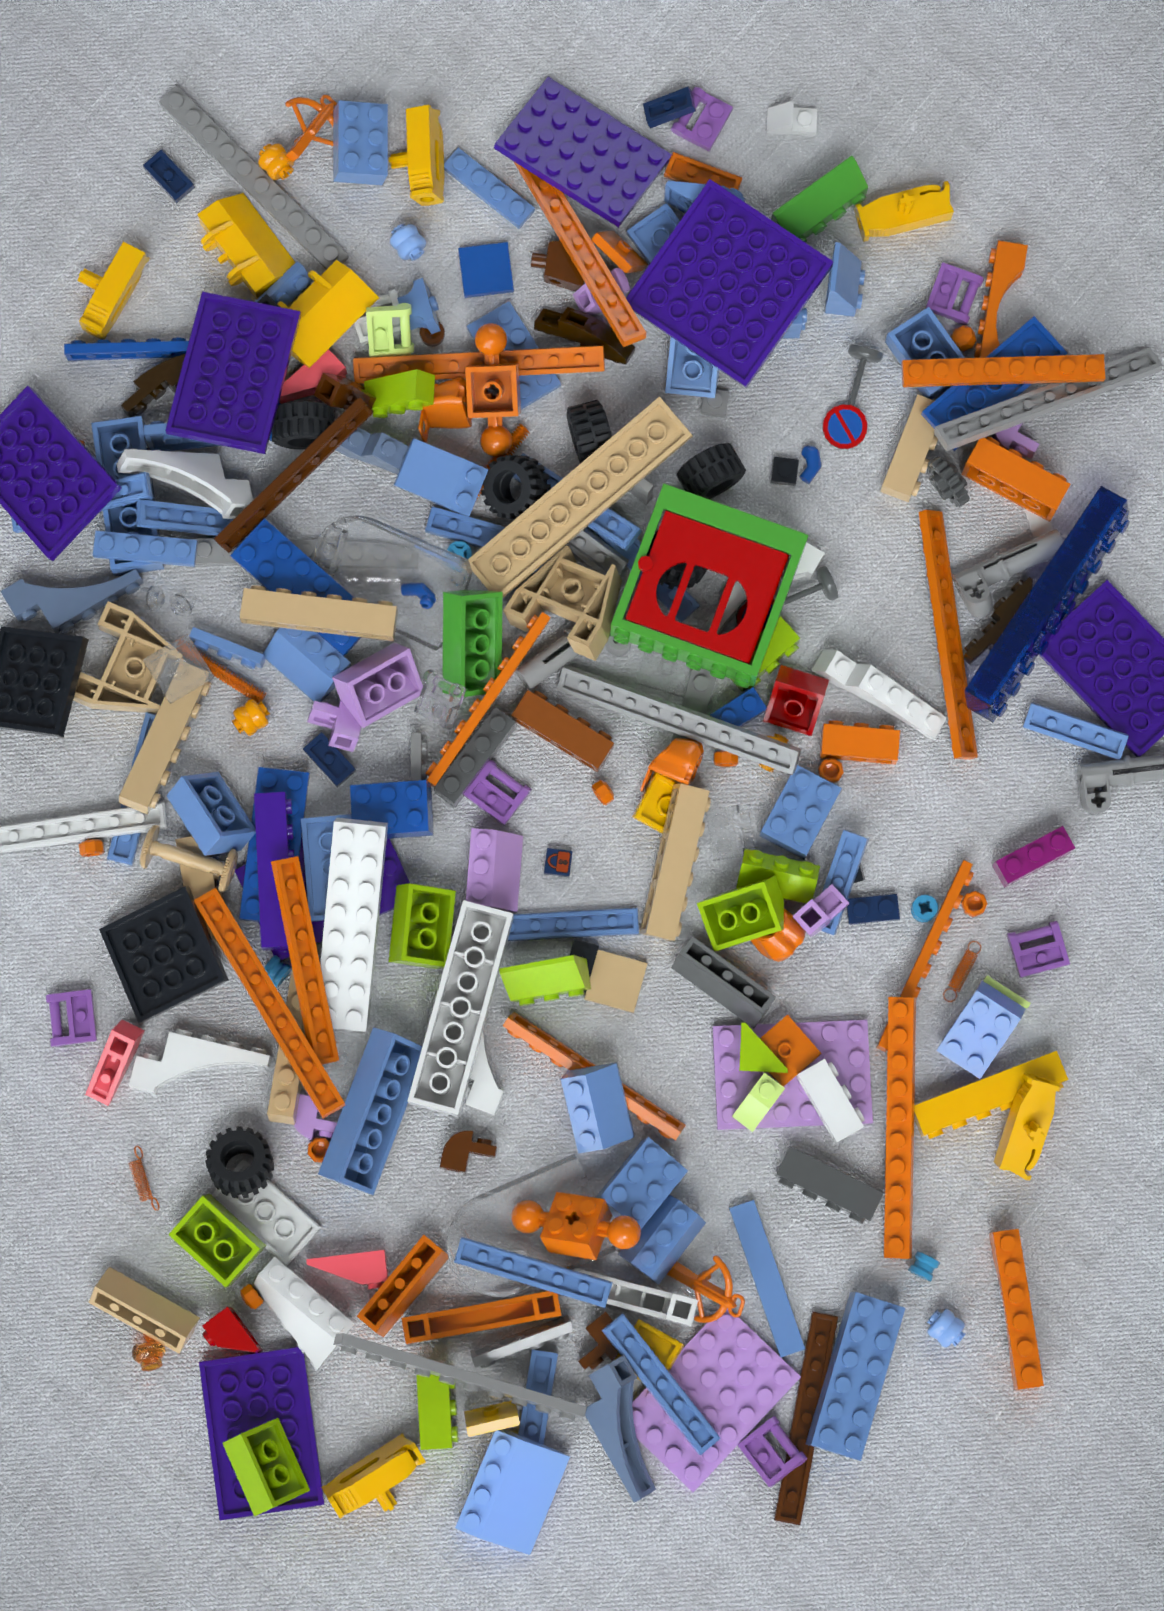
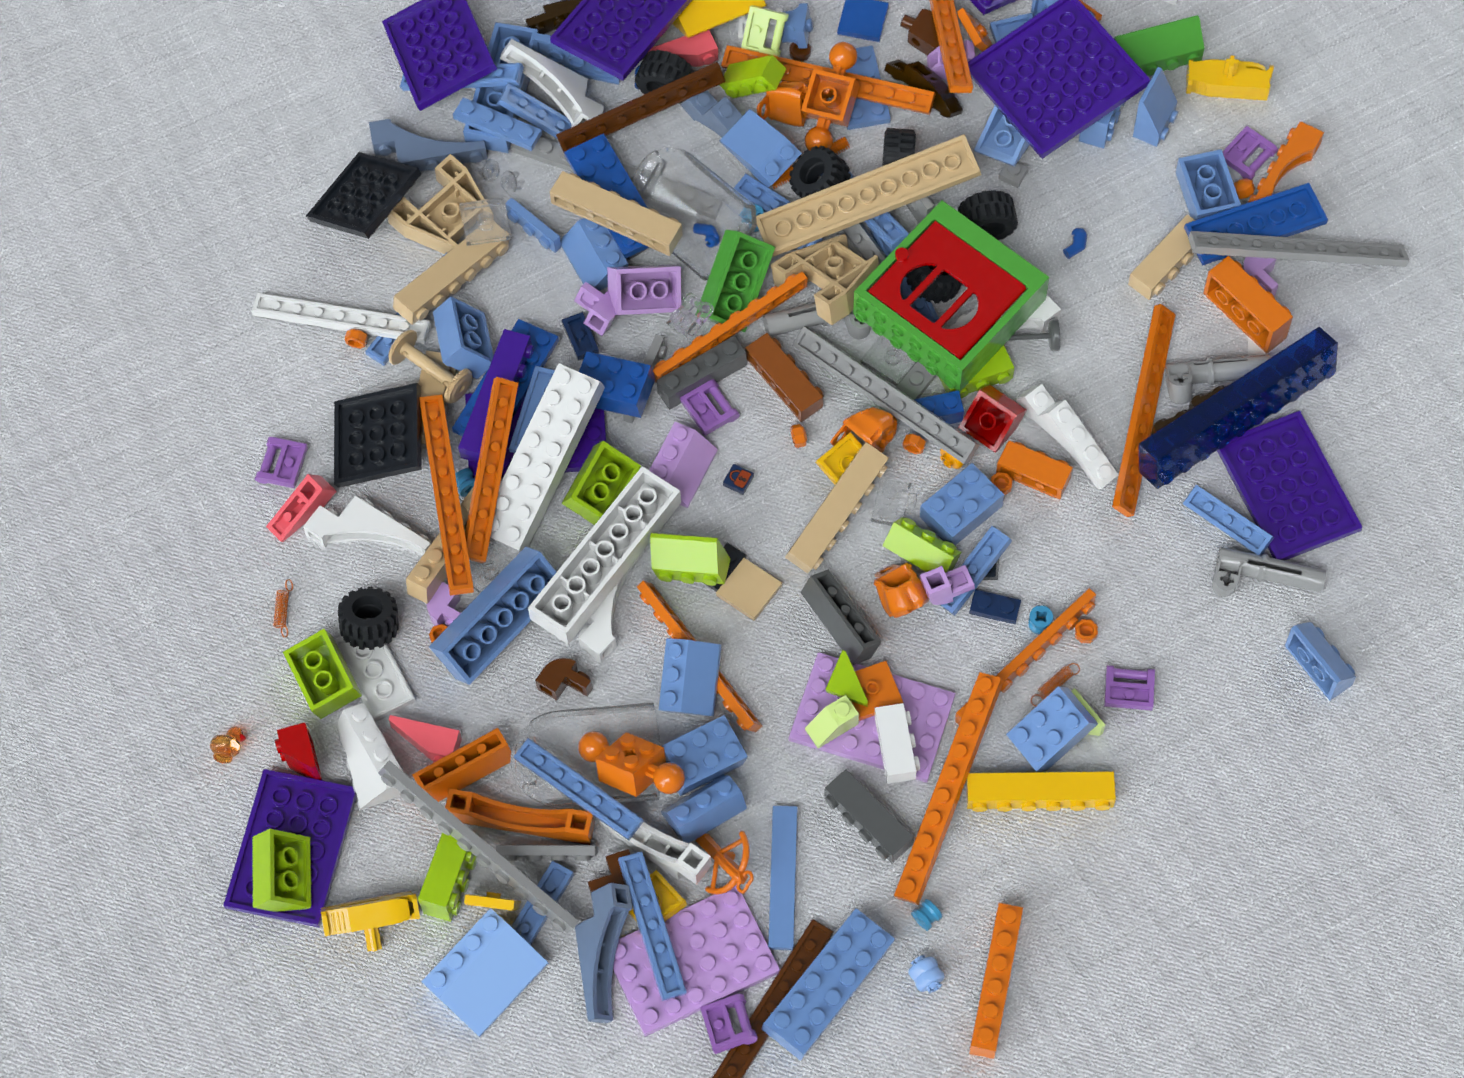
camera: 25 degrees right, 15 degrees down
(144, 1310) = (236, 709): tan brick -> none
(233, 680) = (528, 253): orange axle -> none
(250, 717) = (529, 282): light orange piece -> none
(251, 1297) = (331, 733): orange tile -> none
(341, 392) = (699, 58): reddish brown brick -> none
(574, 924) = (730, 531): medium blue tile -> none
(743, 913) = (879, 562): lime slope -> none
(784, 471) = (1052, 242): black plate -> none
(845, 424) = (1119, 223): piece -> none
(948, 481) = (1188, 288): dark grey gear -> none
(1003, 370) = (1267, 213): orange plate -> none
(1027, 1125) = (1063, 824): yellow piece -> none
(1033, 856) = (1153, 609): magenta brick -> none

